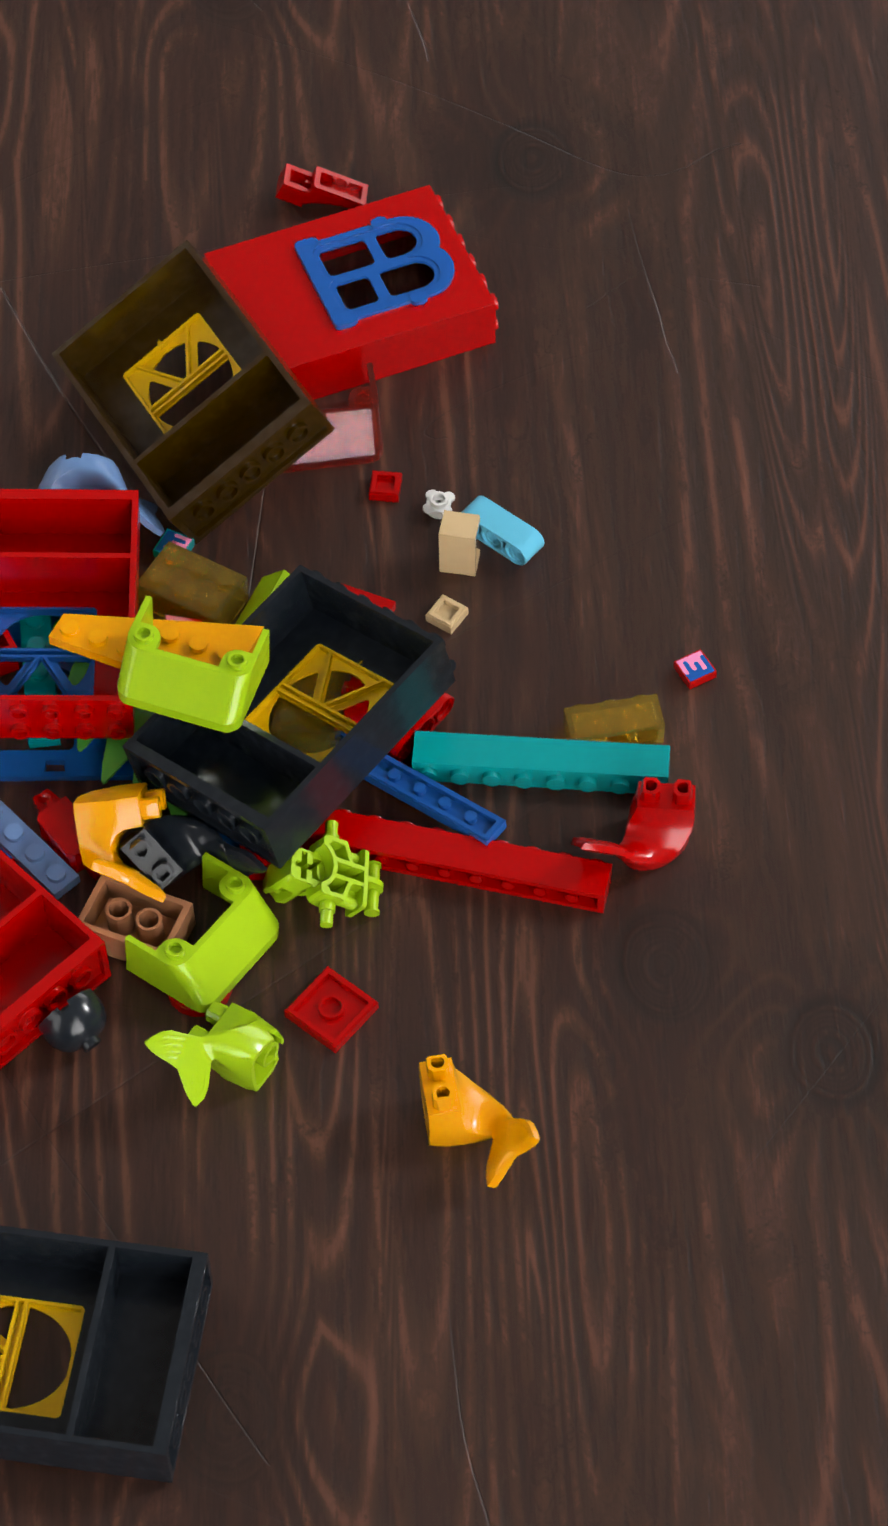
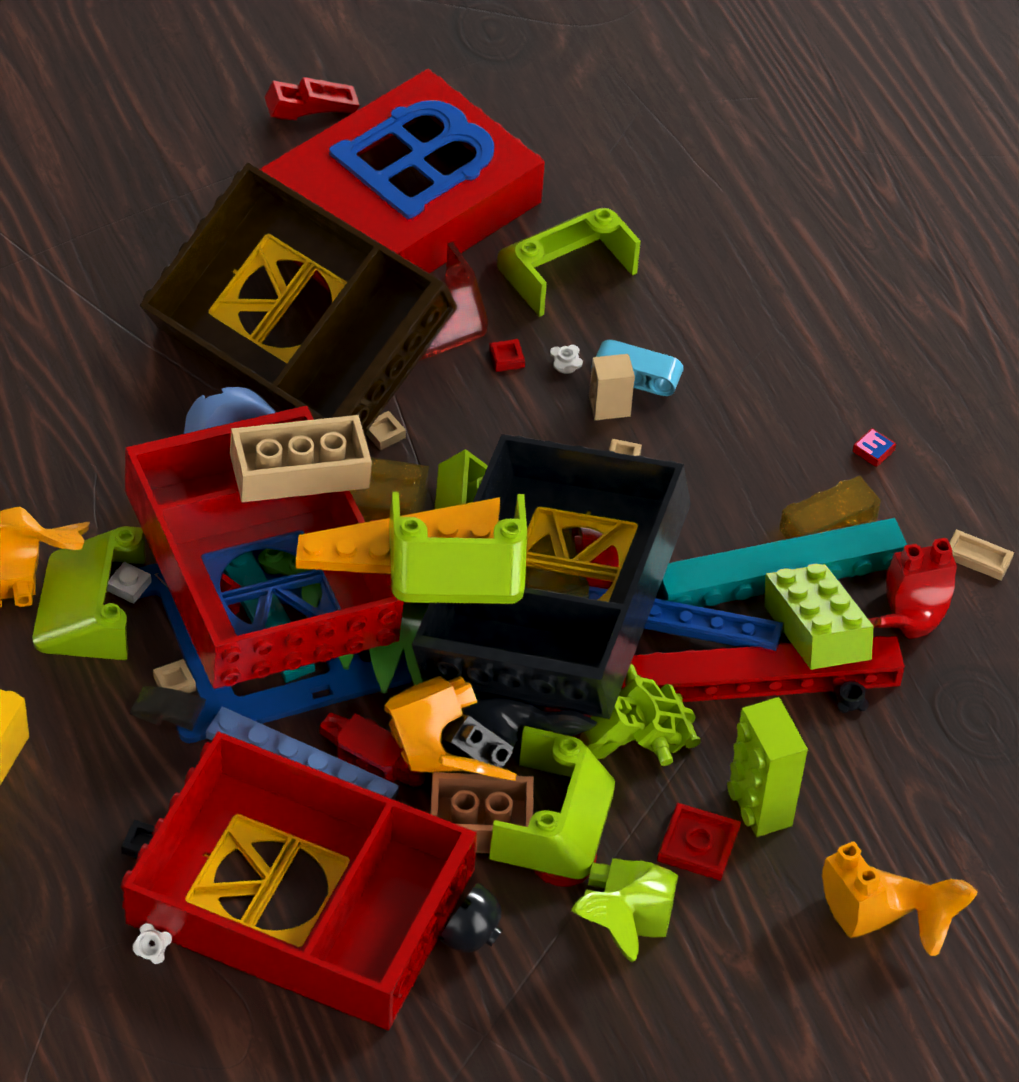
camera: 25 degrees left, 5 degrees down
(94, 540) = (300, 458): none -> tan brick
(235, 531) = (386, 431): none -> tan tile
(404, 957) = (767, 767): none -> lime brick
(485, 386) = (519, 260): none -> lime windscreen
(540, 823) = (818, 616): none -> lime brick
(546, 903) = (853, 690): none -> black plate
(745, 804) = (980, 555): none -> tan tile

